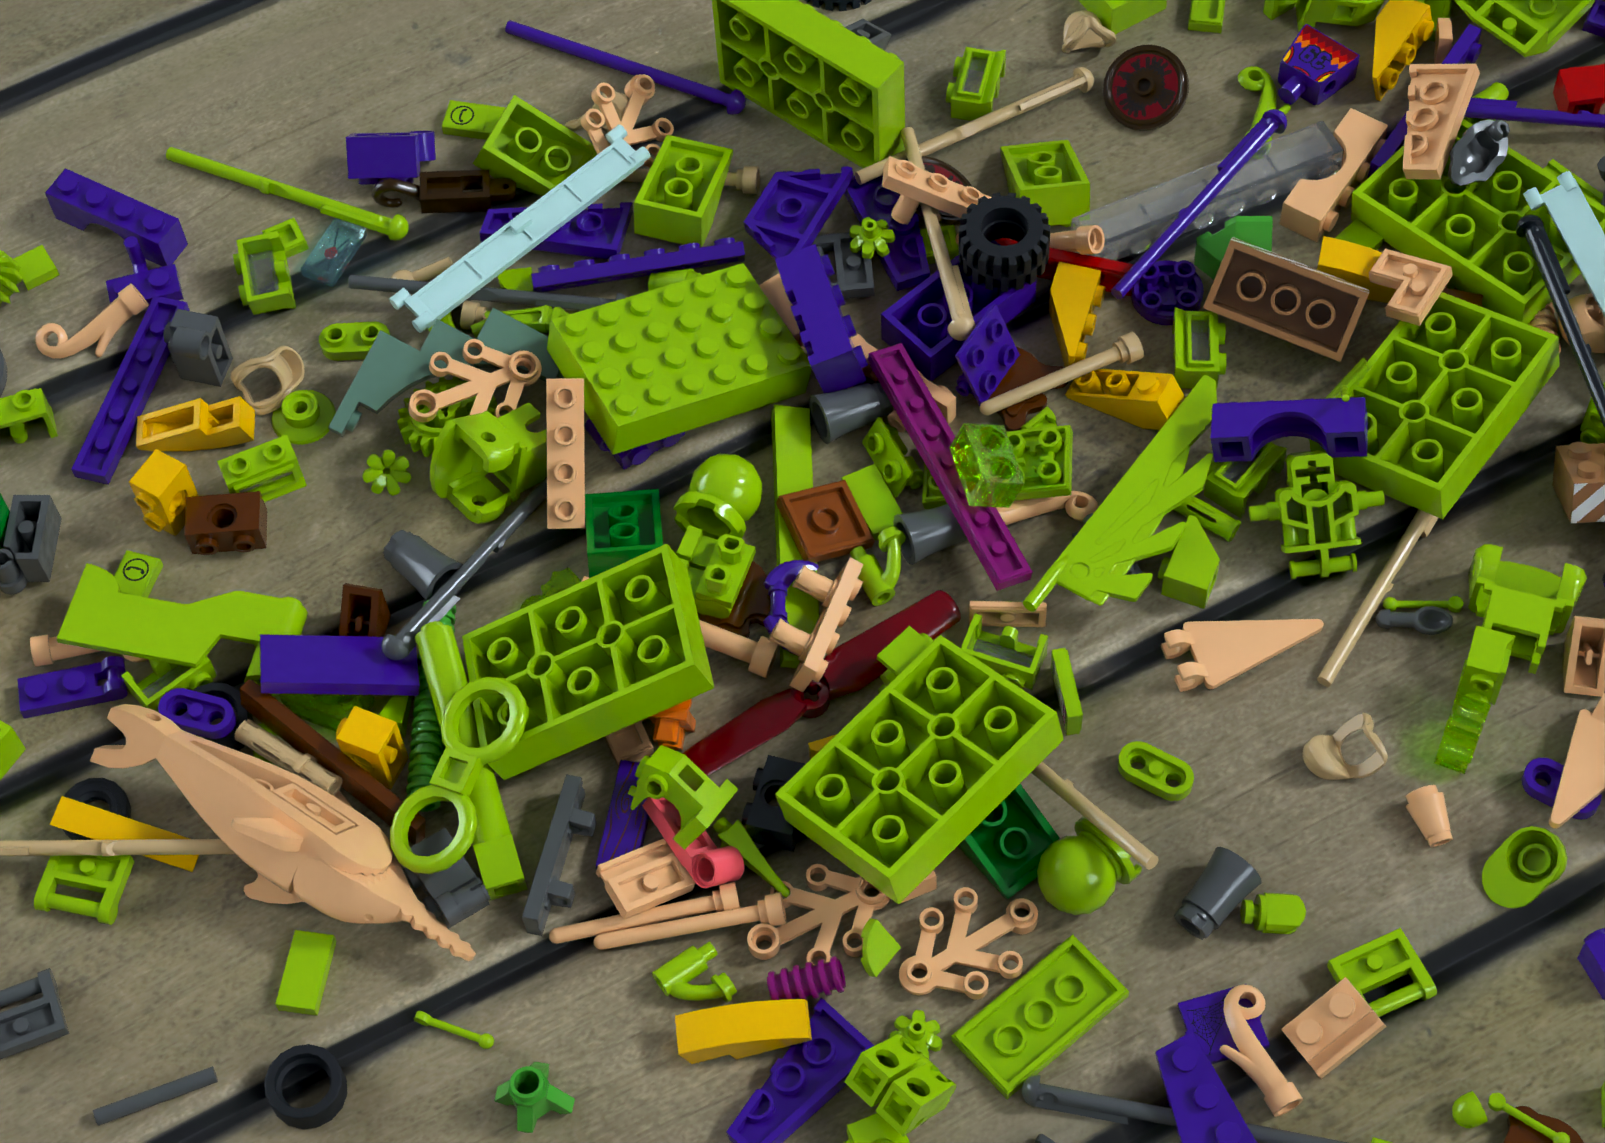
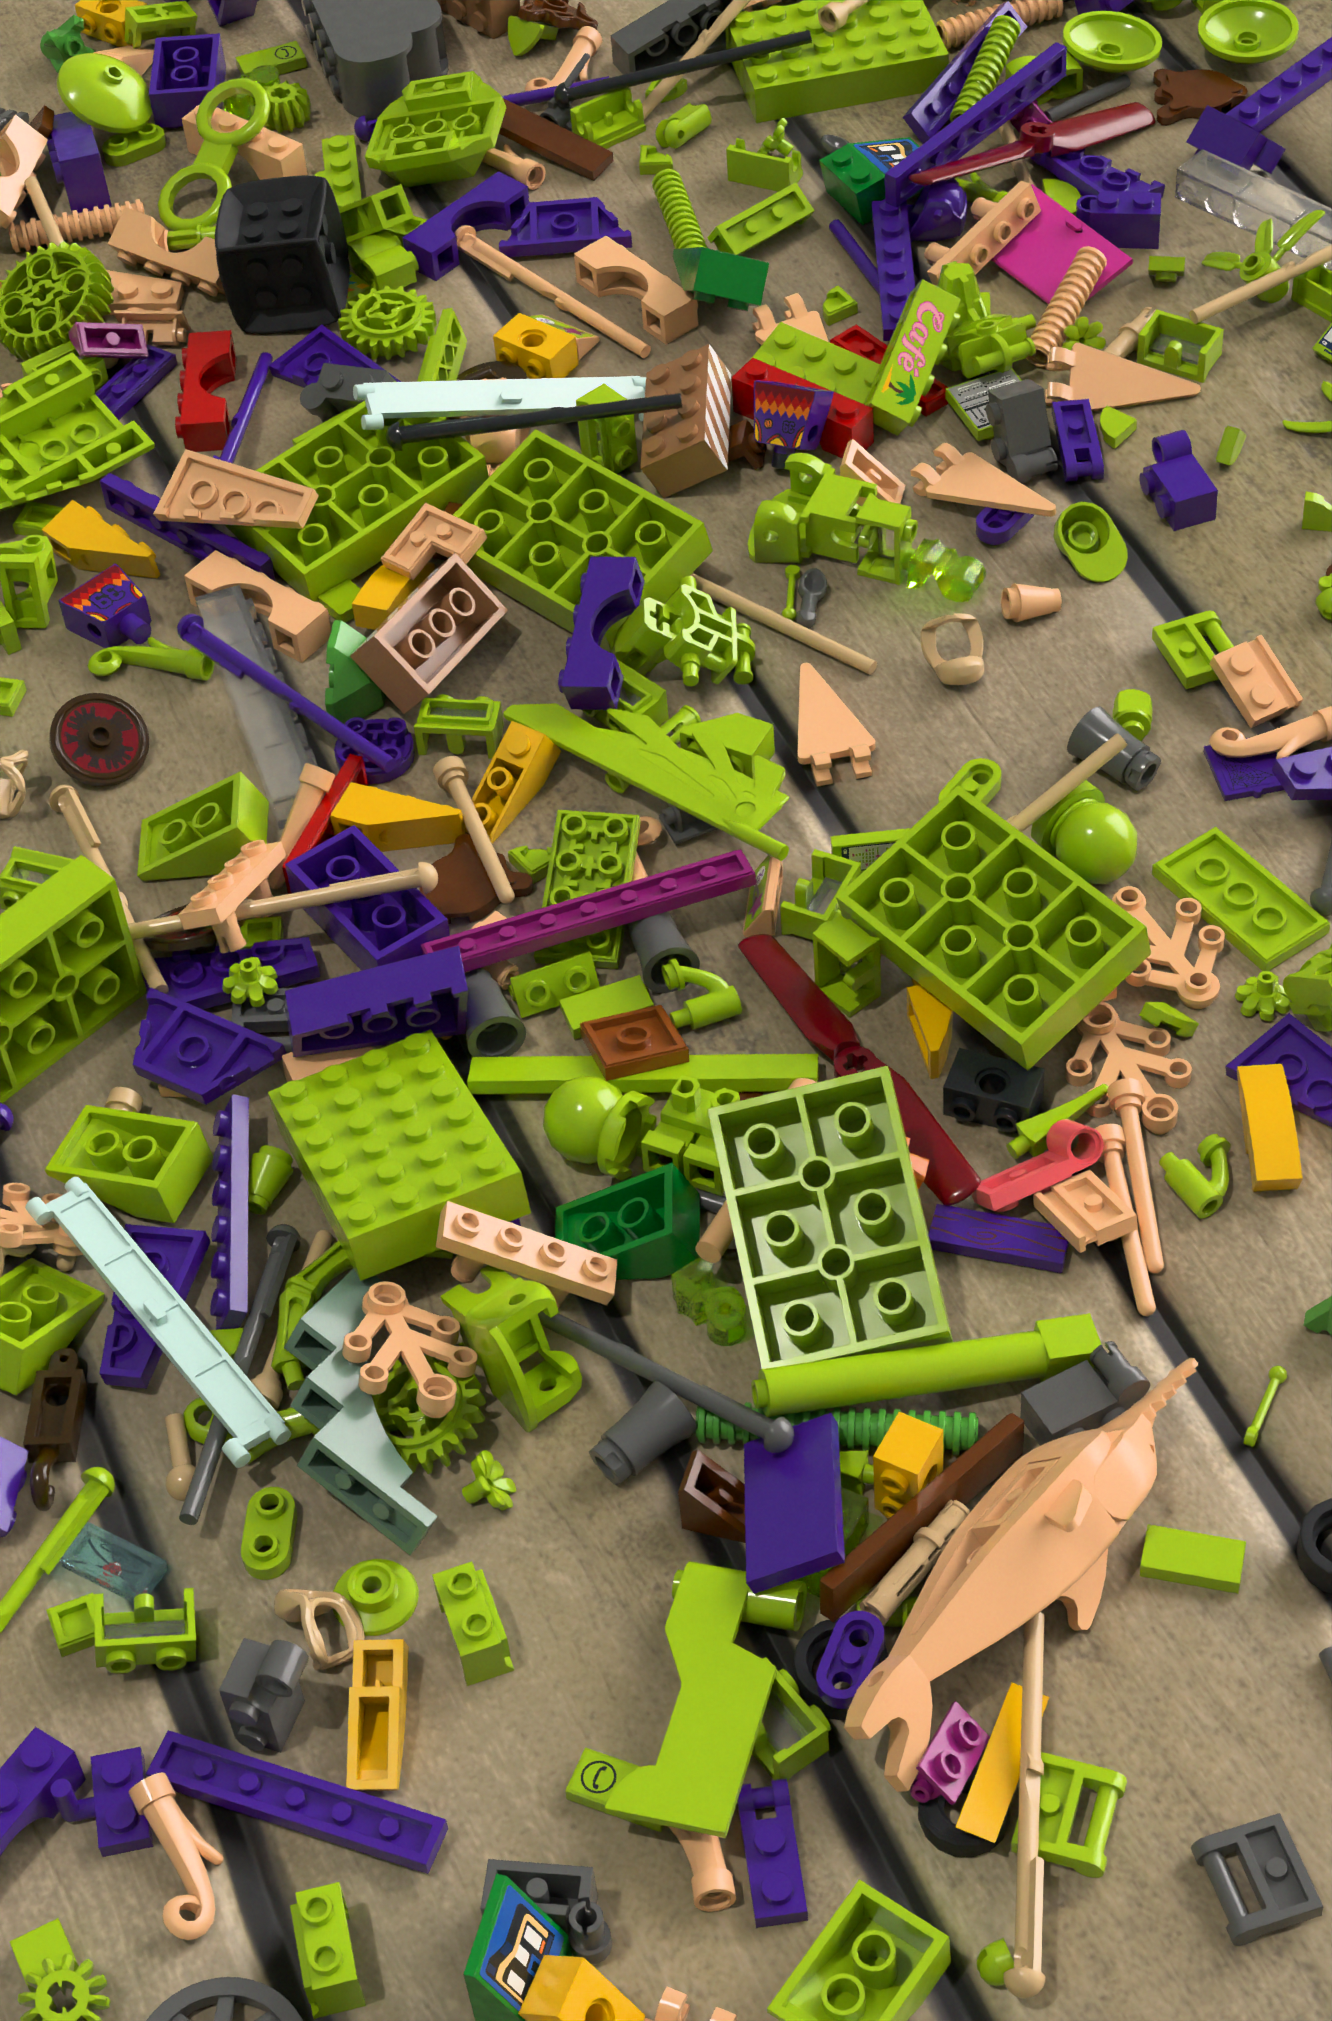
camera: 85 degrees left, 10 degrees down
(123, 792) = (949, 1757): none -> magenta hinge
(162, 492) = (497, 1724): yellow brick -> none
(208, 515) = (549, 1693): reddish brown brick -> none
(457, 775) = (971, 1352): lime bar -> none
(546, 887) = (1047, 1298): dark grey hinge -> none
(685, 787) = (988, 1152): lime tile -> none
(777, 584) = (749, 1074): dark purple piece -> none
(807, 980) = (1210, 1073): magenta piece -> none
(813, 647) = (779, 1032): light nougat plate -> none
(985, 356) = (457, 882): dark purple hinge -> none
(986, 465) = (610, 866): clear neon green brick -> none
(1009, 219) = (318, 831): black tyre -> none
(1341, 389) = (543, 600): lime piece -> none
(1443, 39) = (109, 509): light nougat tile -> none
(1478, 152) = (294, 462): dark grey arm -> none

